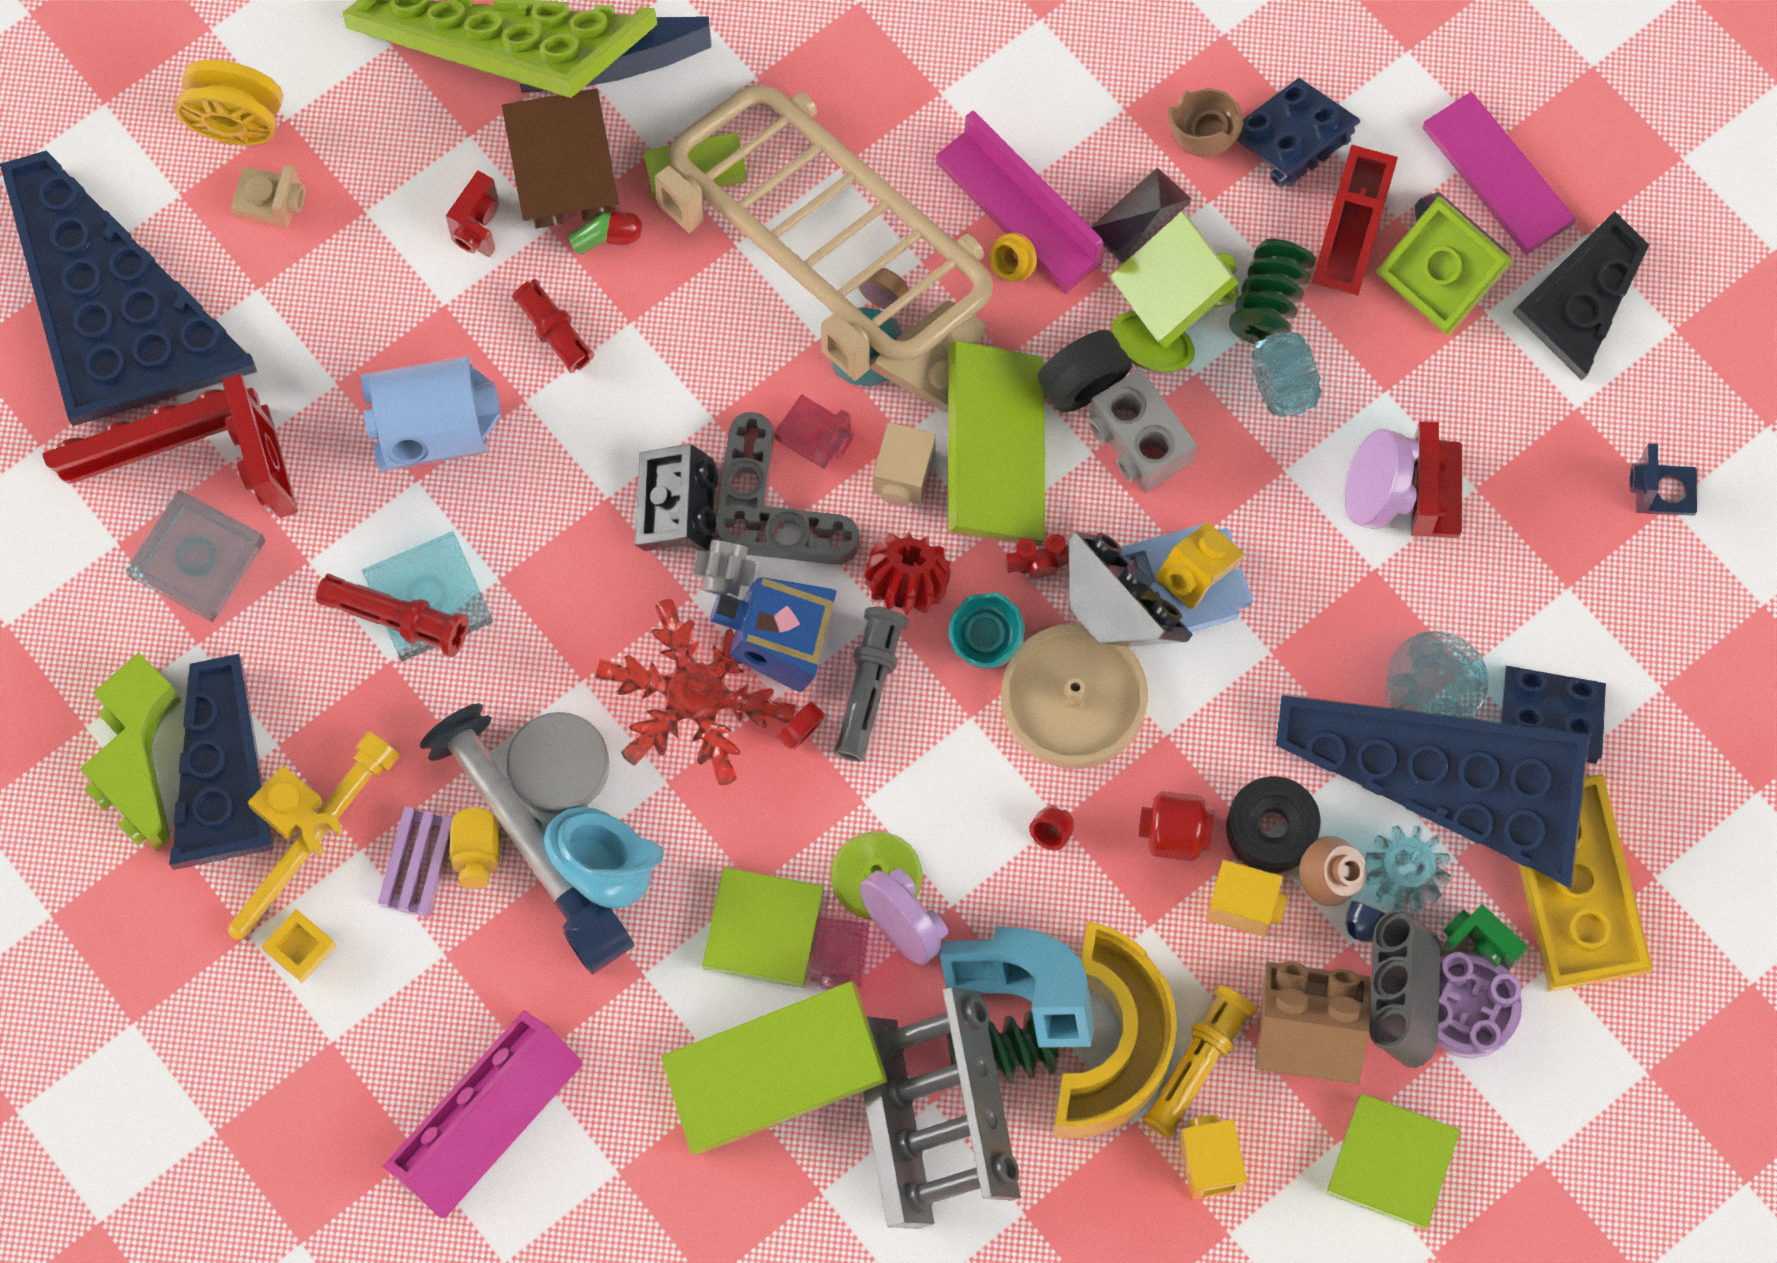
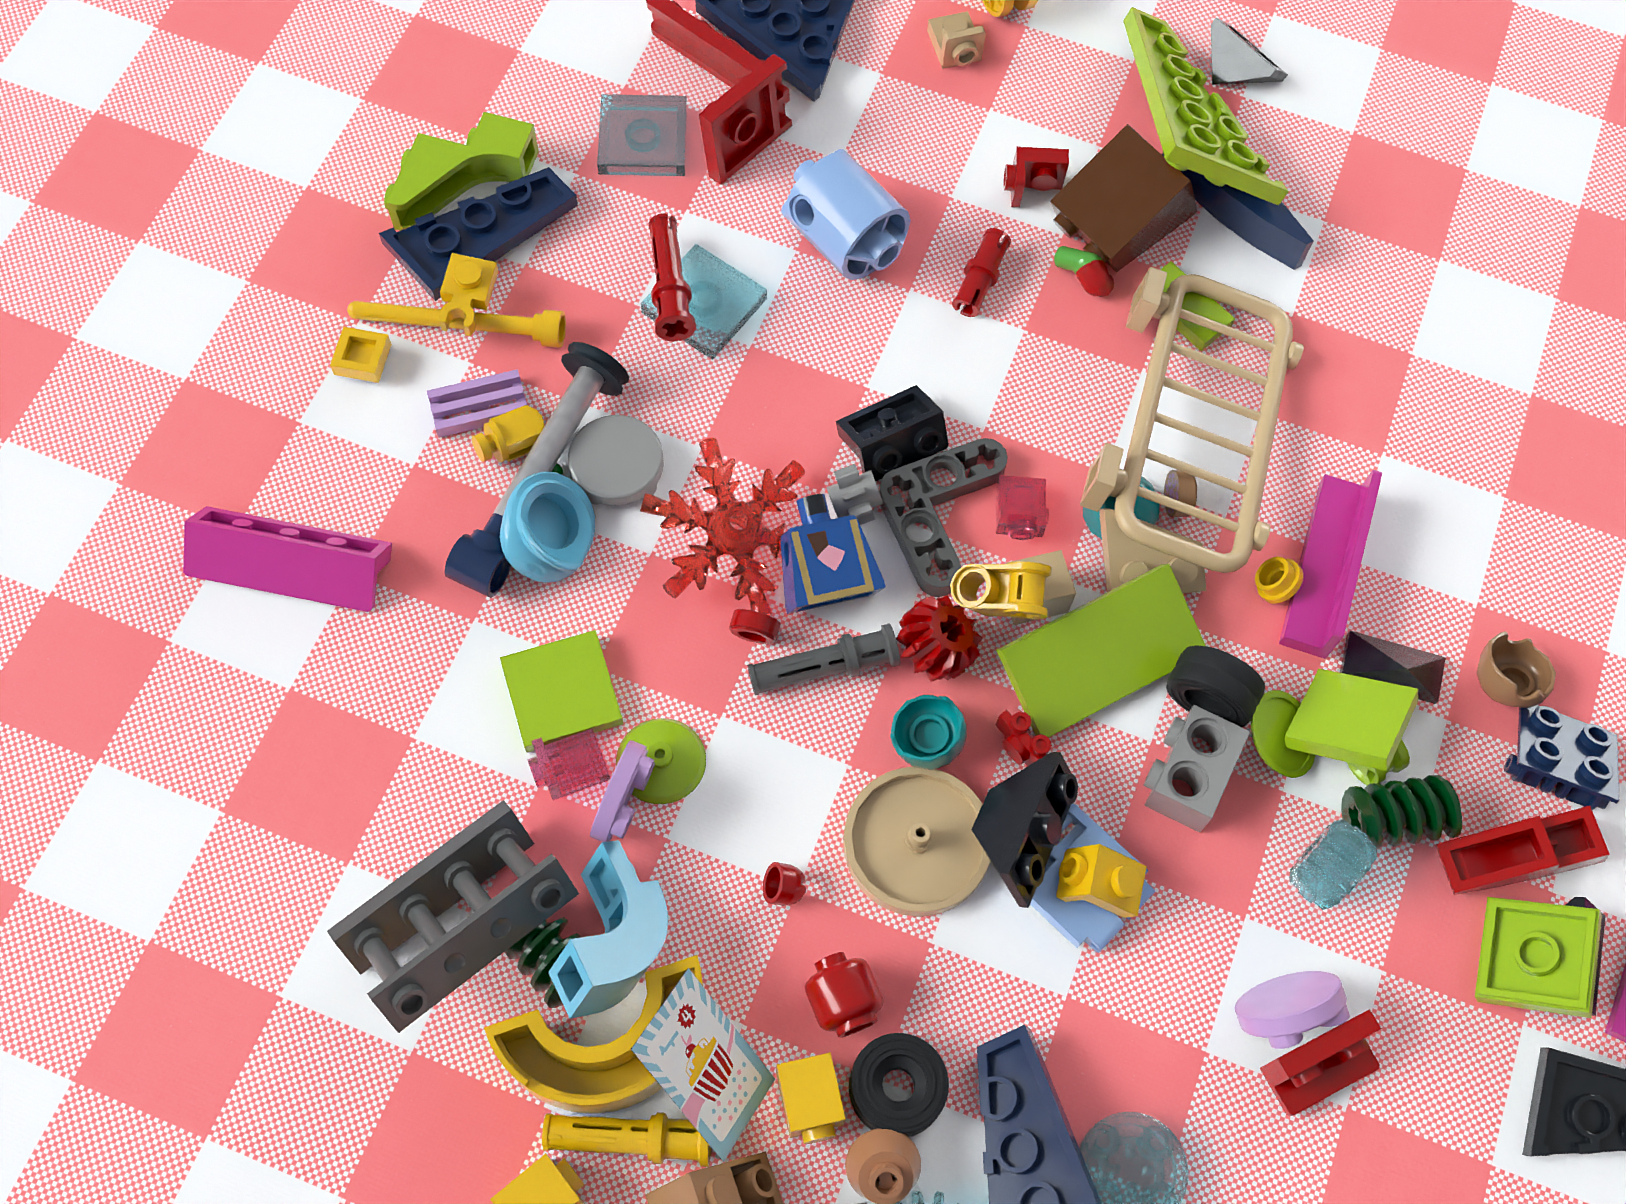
camera: 55 degrees right, 5 degrees down
(773, 1068) = (431, 761): lime tile -> none
(909, 485) = (1010, 590): none -> yellow piece
(1180, 962) = (704, 1064): none -> sticker

